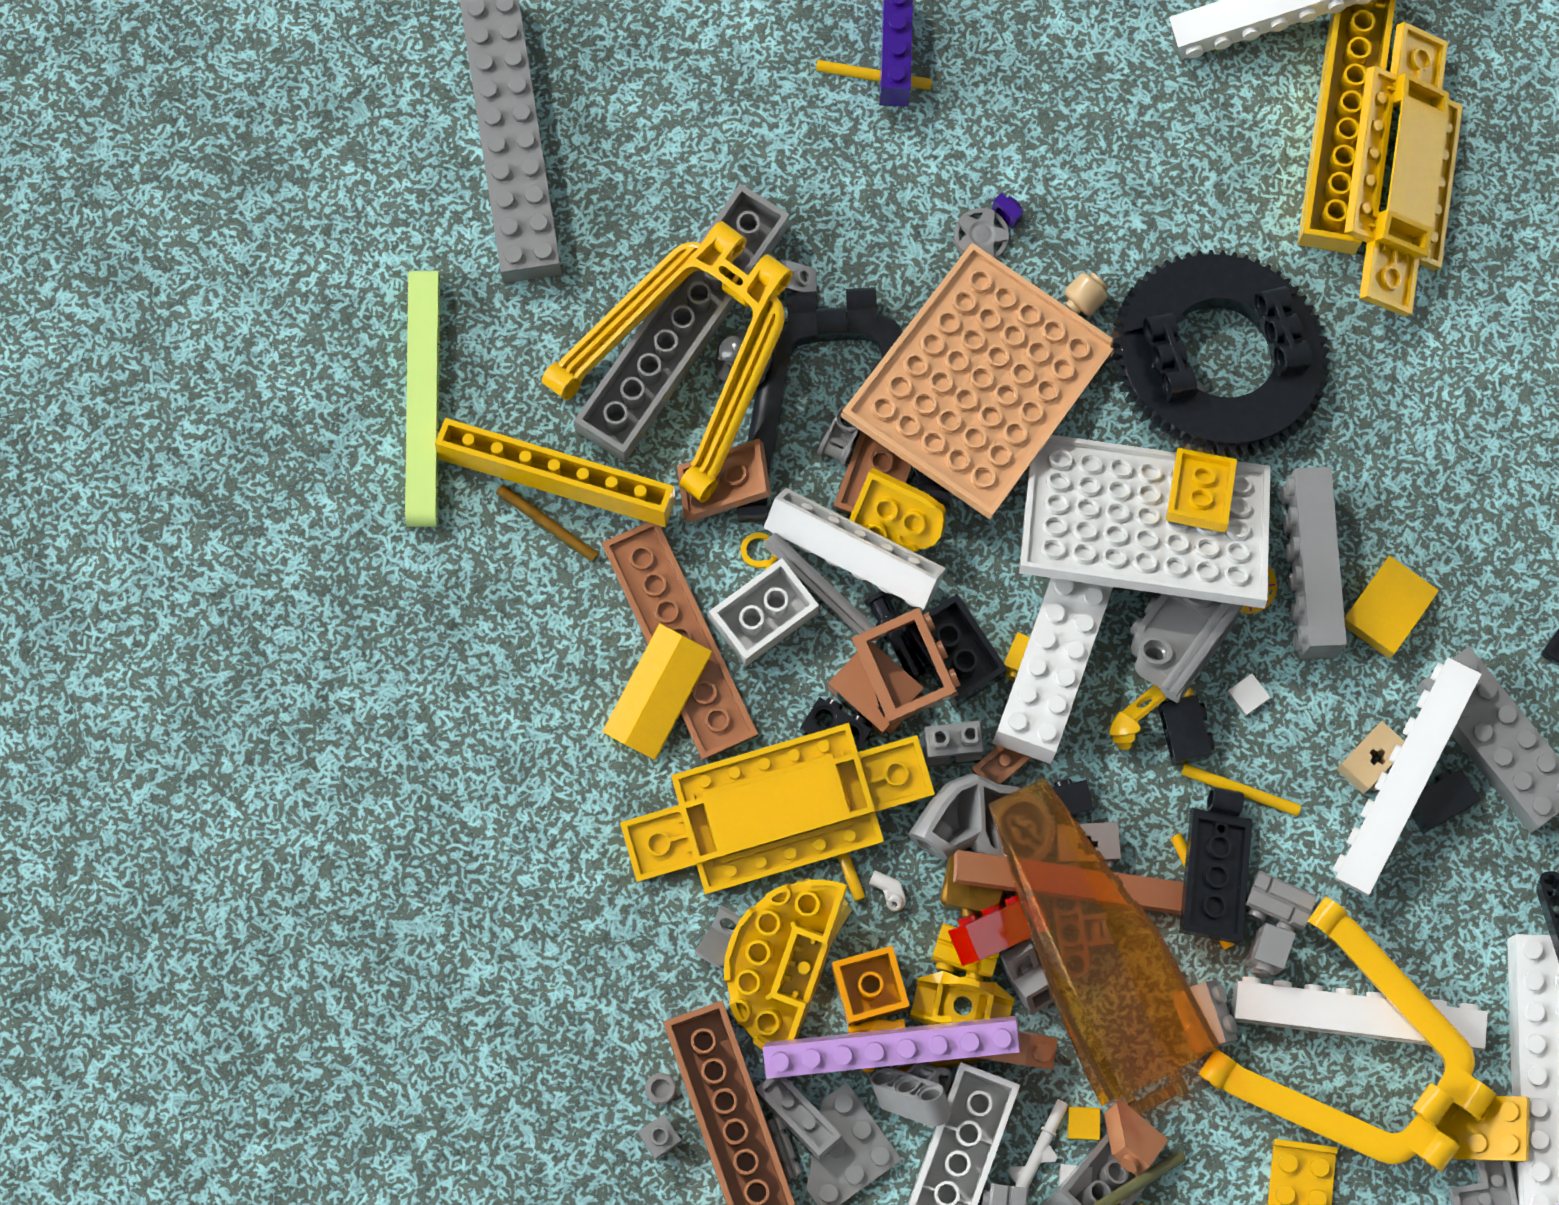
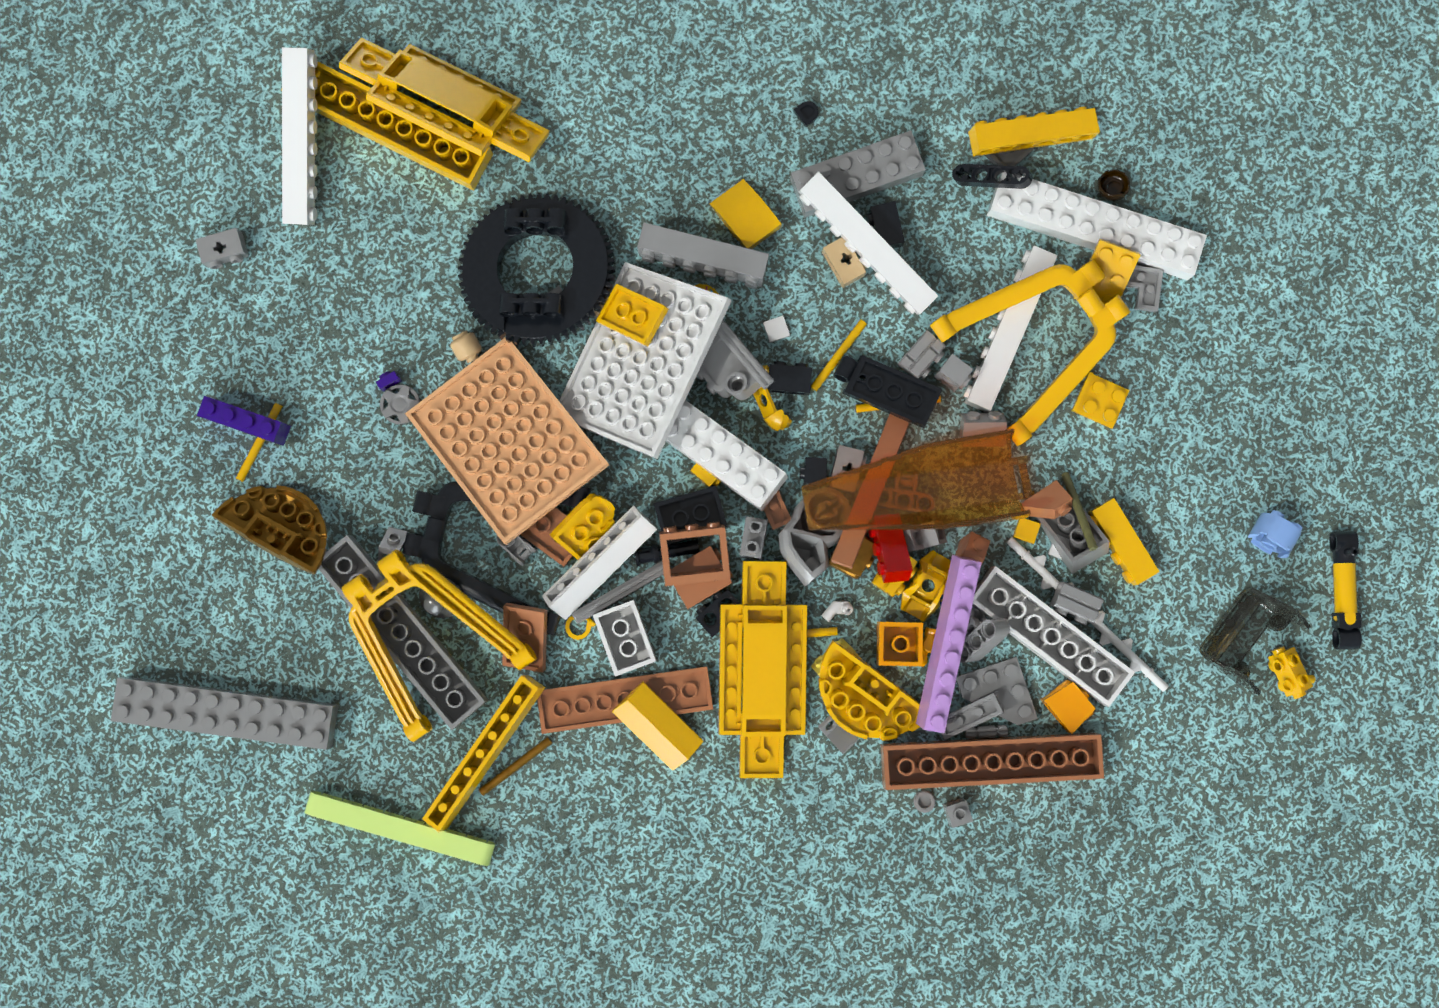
camera: 70 degrees left, 10 degrees up
(776, 129) = (279, 523): none -> pearl gold brick

